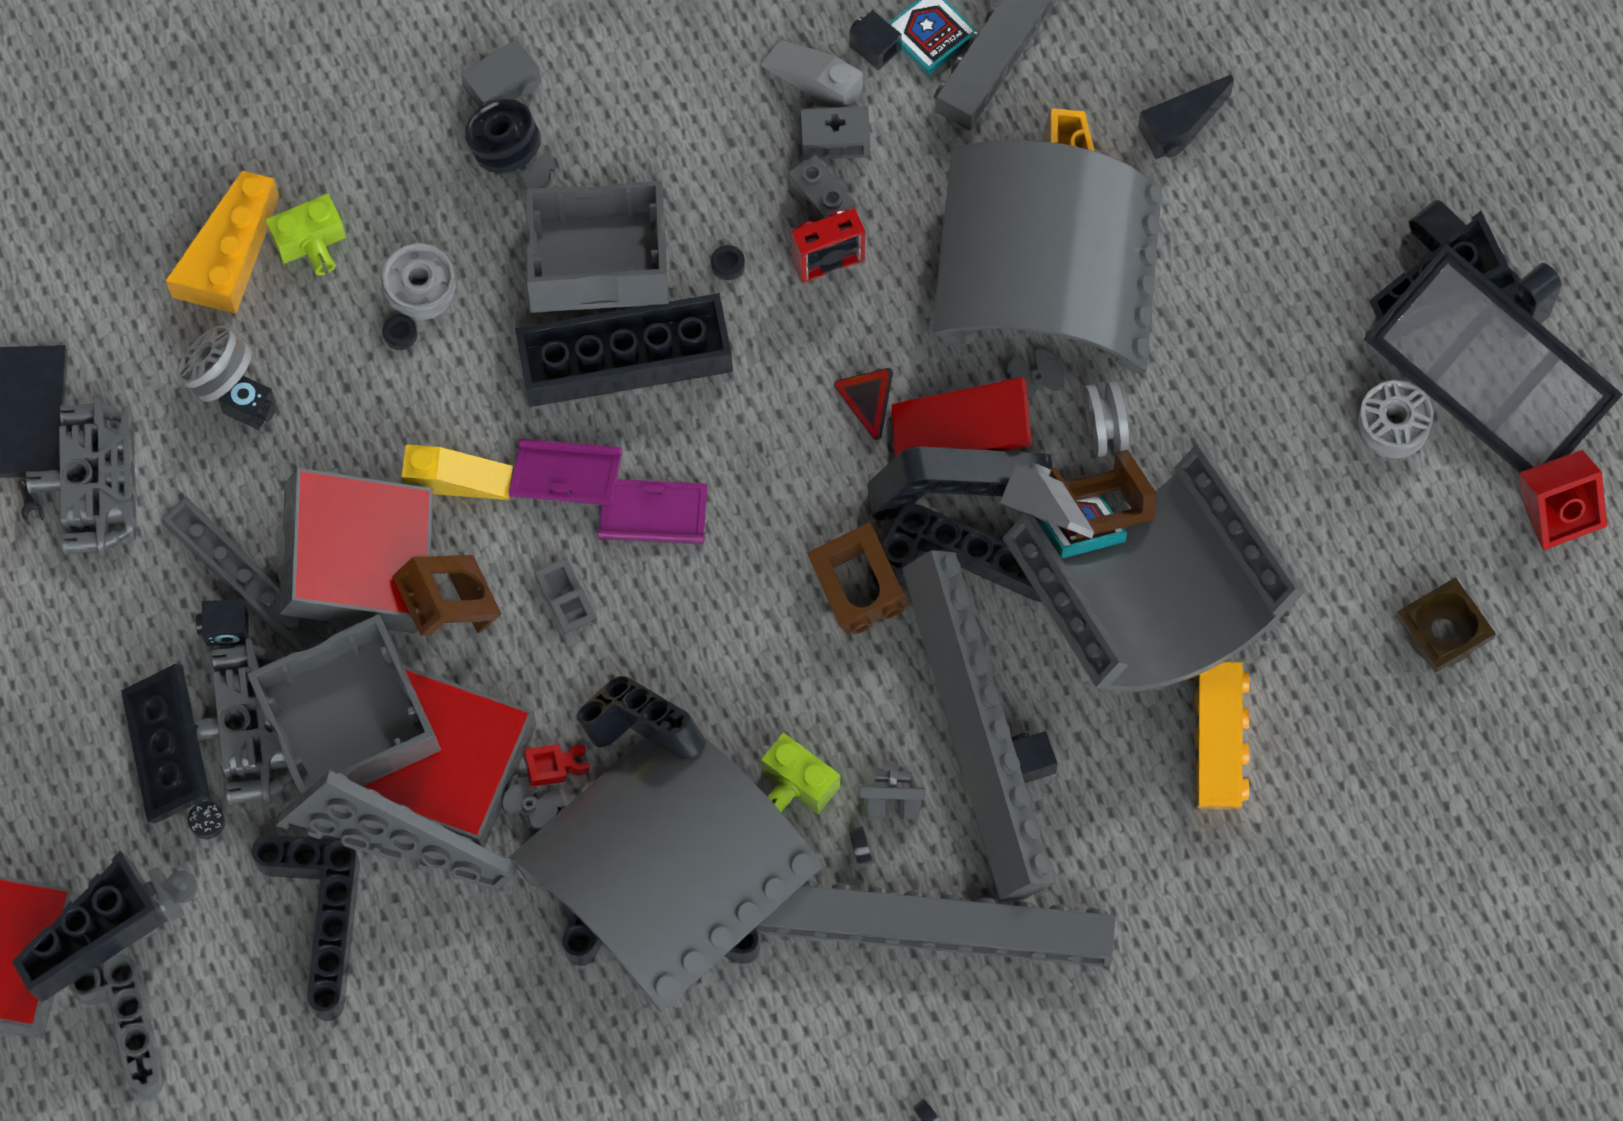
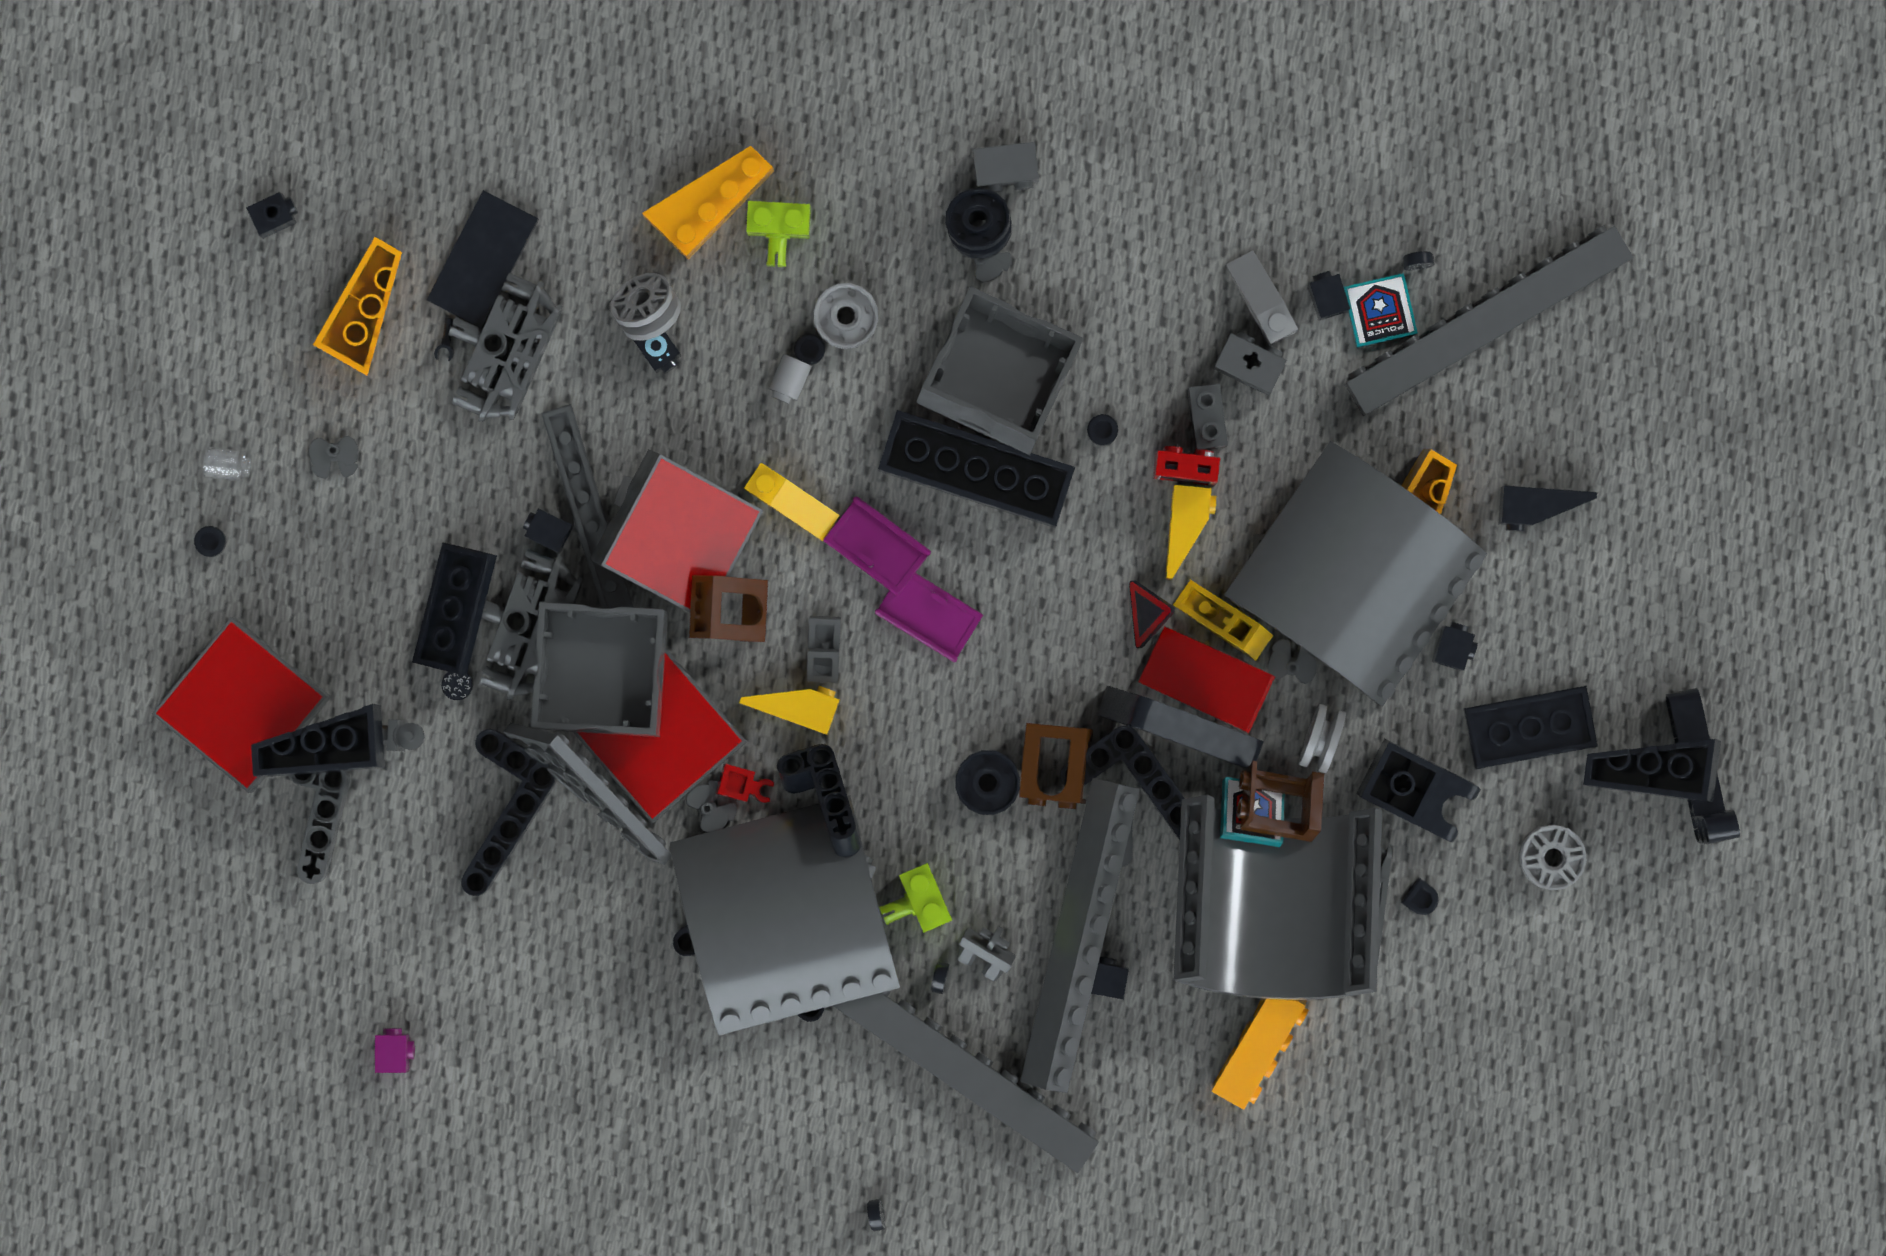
camera: 25 degrees right, 20 degrees up
(394, 364) = (789, 379): none -> light grey brick
(571, 659) = (803, 707): none -> yellow slope
(796, 614) = (987, 763): none -> black wheel
(855, 292) = (1188, 517): none -> yellow slope
(947, 366) = (1223, 620): none -> yellow slope
(1045, 498) = (1230, 793): light grey slope -> none
(1182, 280) = (1455, 646): none -> black brick
(1234, 418) = (1424, 791): none -> black brick
(1293, 525) = (1421, 898): none -> black tile
(1299, 318) = (1530, 727): none -> black tile
(1451, 603) = (1506, 1060): dark brown piece -> none
(1491, 364) = (1650, 864): clear door -> none
(1564, 499) = (1642, 996): red slope -> none

